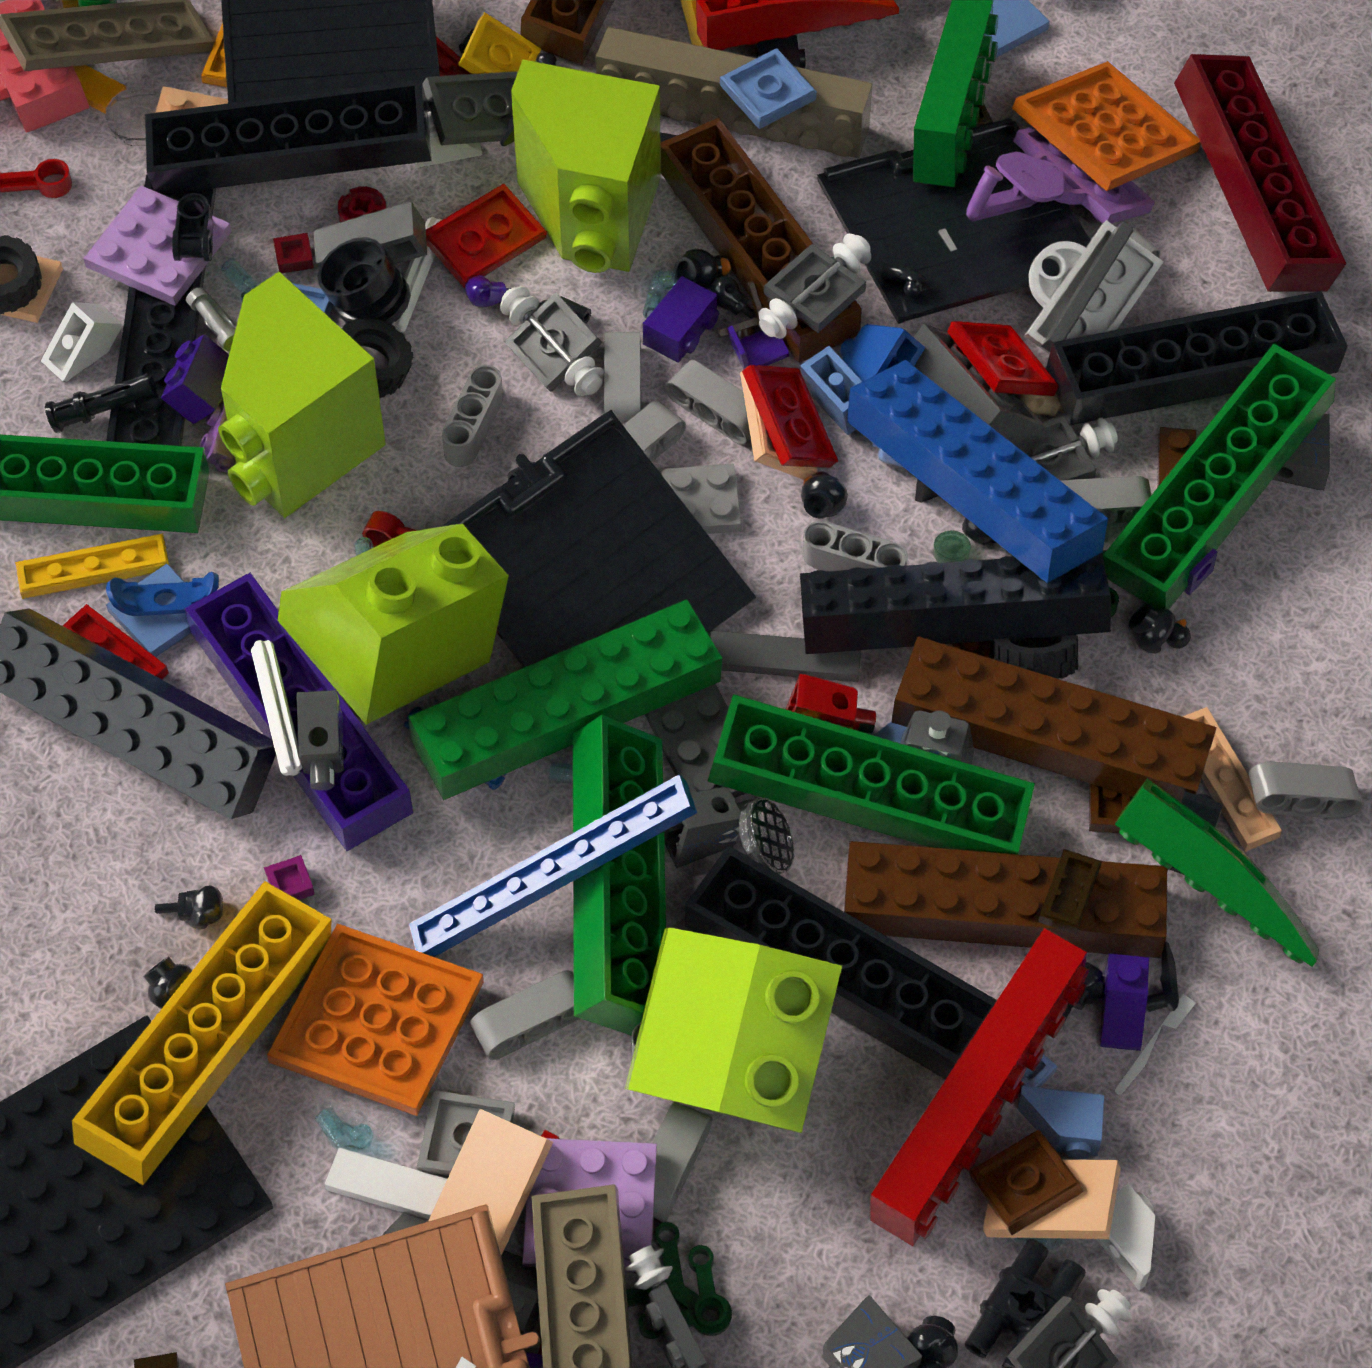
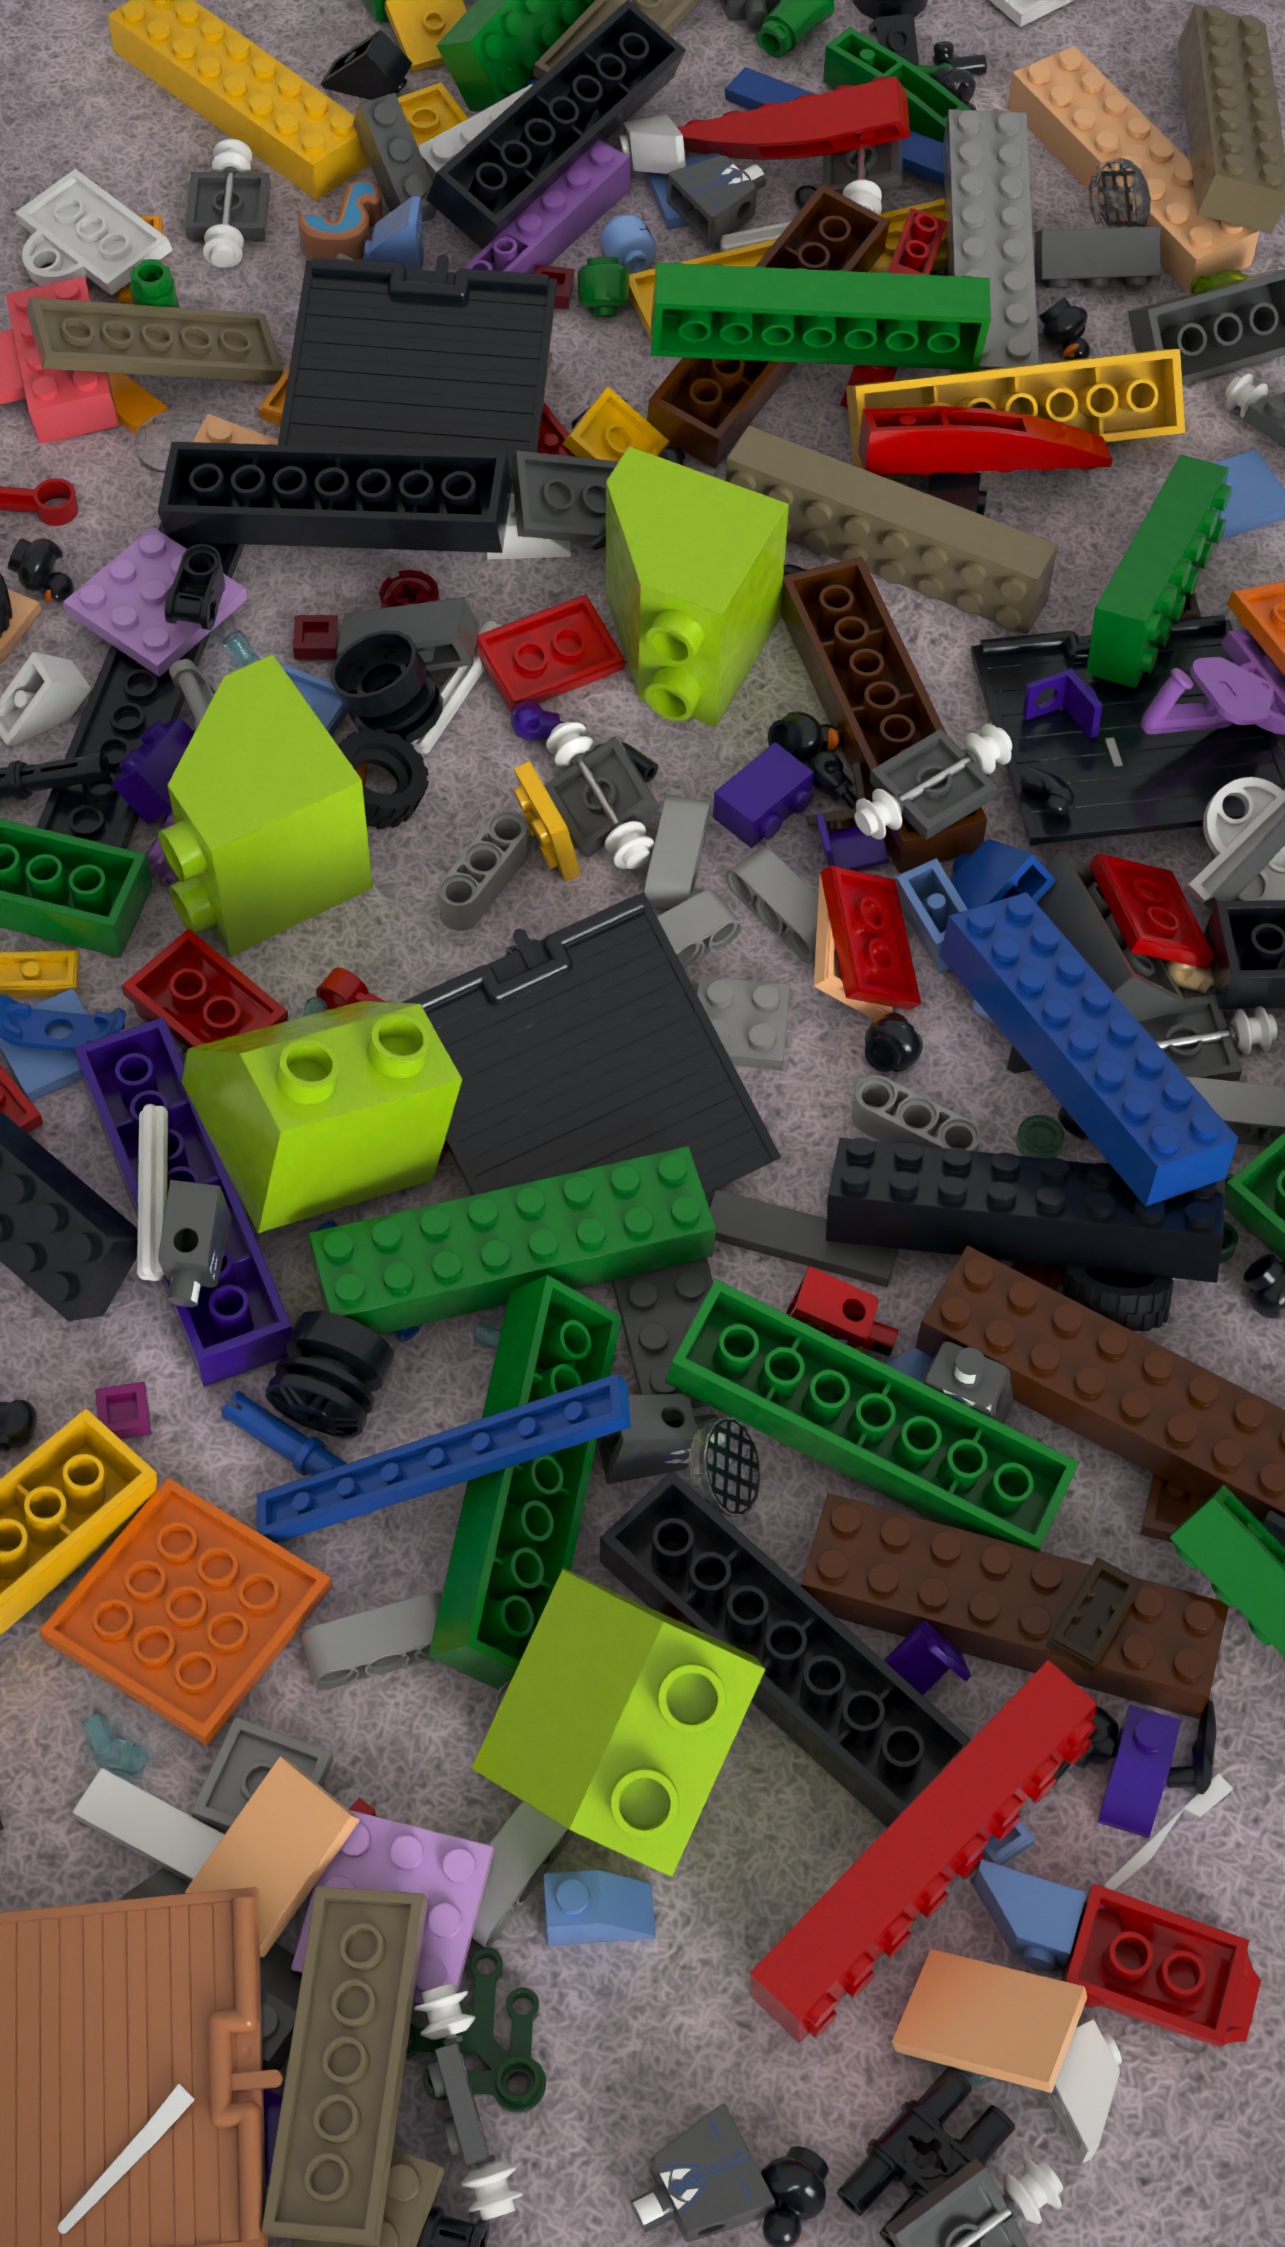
camera: 10 degrees right, 0 degrees up
(50, 233) = (34, 567): none -> black animal
(272, 550) = (200, 994): none -> red slope
(438, 886) = (305, 1453): none -> blue pin
(446, 822) = (330, 1374): none -> black wheel
(515, 369) = (545, 822): none -> yellow plate
(658, 287) = (746, 750): clear light blue arm -> none
(740, 1177) = (597, 1908): none -> medium blue slope
(768, 88) = (927, 530): medium blue tile -> none
(904, 199) = (1069, 694): none -> dark purple bracket
(949, 948) = (926, 1657): none -> dark purple bracket
(1025, 1182) = (960, 1990): reddish brown tile -> none
(1170, 1138) = (1163, 1968): none -> red slope

